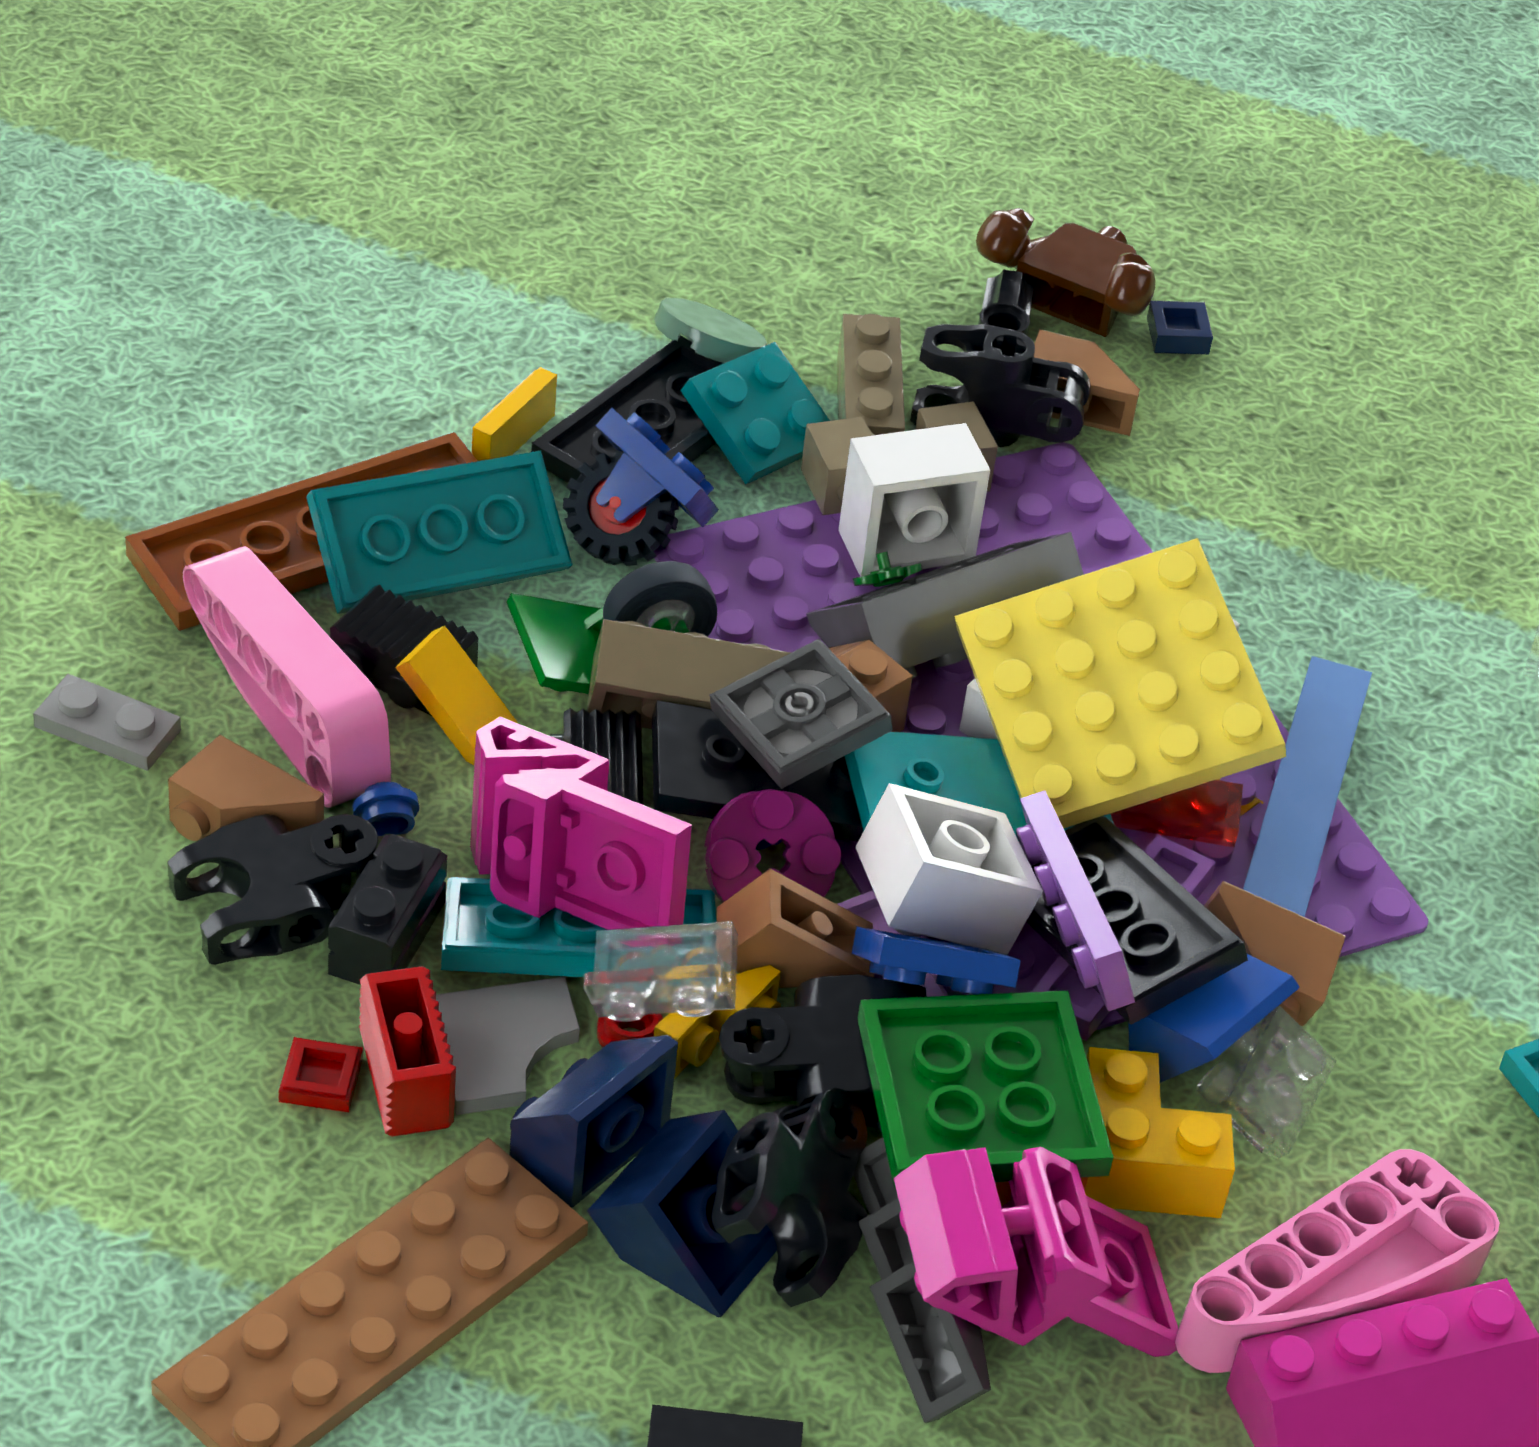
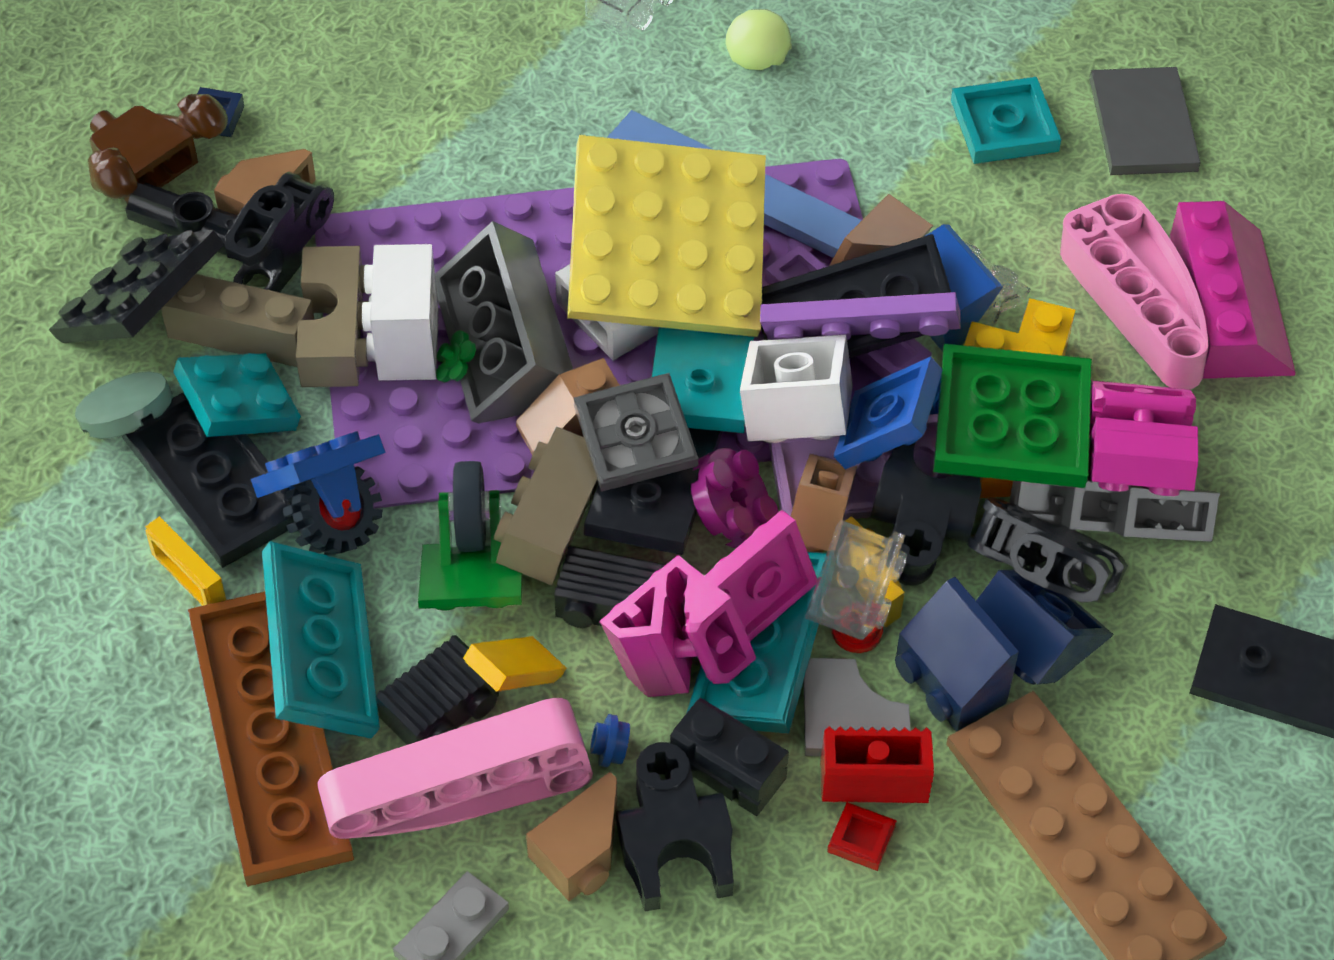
camera: 70 degrees left, 10 degrees up
(862, 290) = (136, 287): none -> black plate

